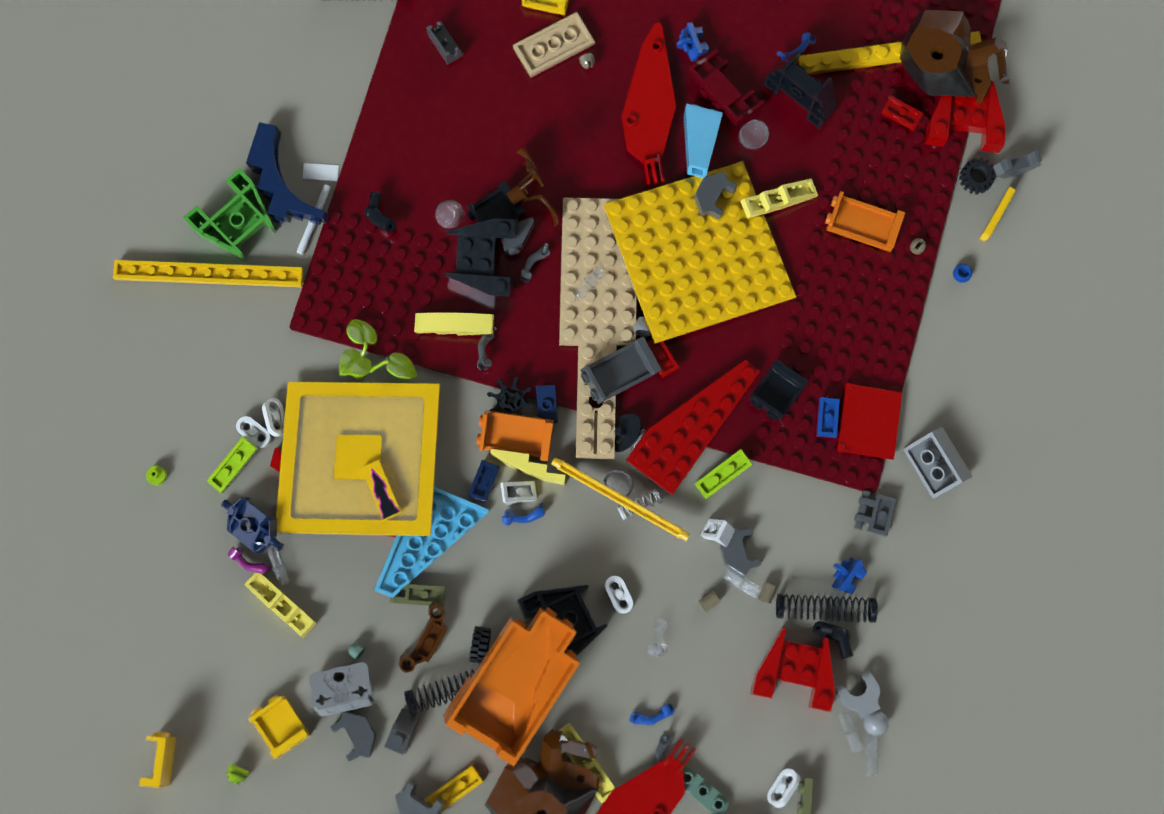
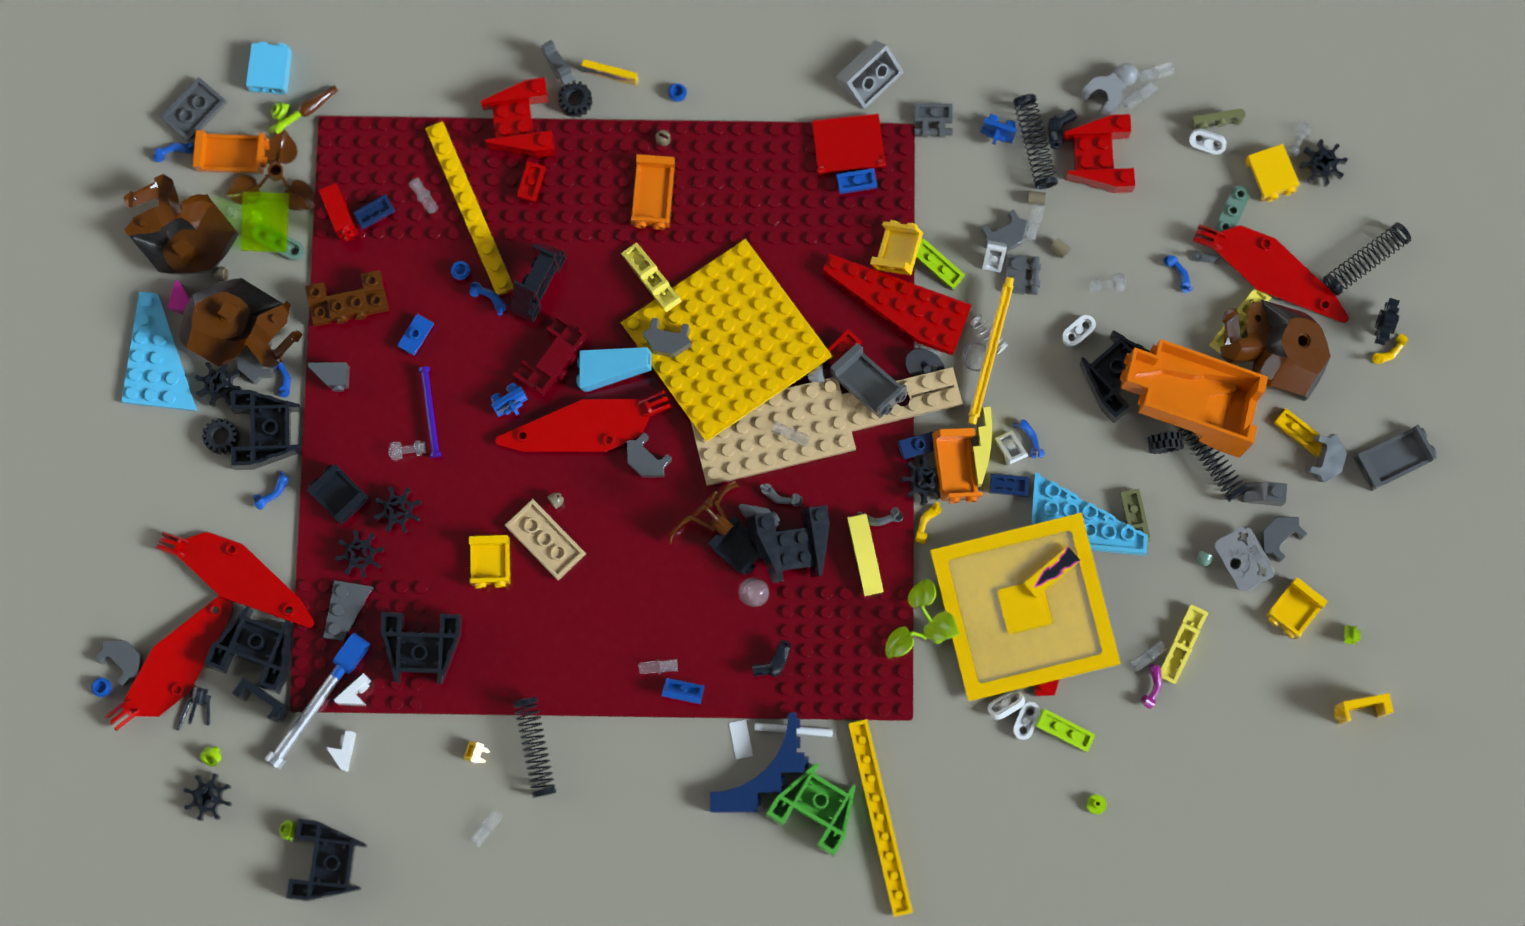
camera: 105 degrees left, 0 degrees up
(261, 530) = (1121, 676): dark blue plate -> none
(376, 127) = (683, 690): none -> blue plate
(406, 113) = (658, 666): none -> clear axle
(427, 641) = (1176, 494): reddish brown plate -> none
(444, 43) = (573, 649): dark grey hinge -> none
(479, 401) = (933, 511): none -> yellow piece
(603, 146) = (643, 461): none -> dark grey piece
(695, 551) = (1017, 269): none -> dark grey plate
(747, 437) = (898, 248): none -> yellow panel
(753, 134) = (593, 316): clear hair -> none
(777, 391) = (844, 233): black panel -> none
(830, 30) = (460, 270): none -> blue plate
(909, 15) = (423, 195): none -> clear axle
(944, 62) = (471, 151): reddish brown piece -> none

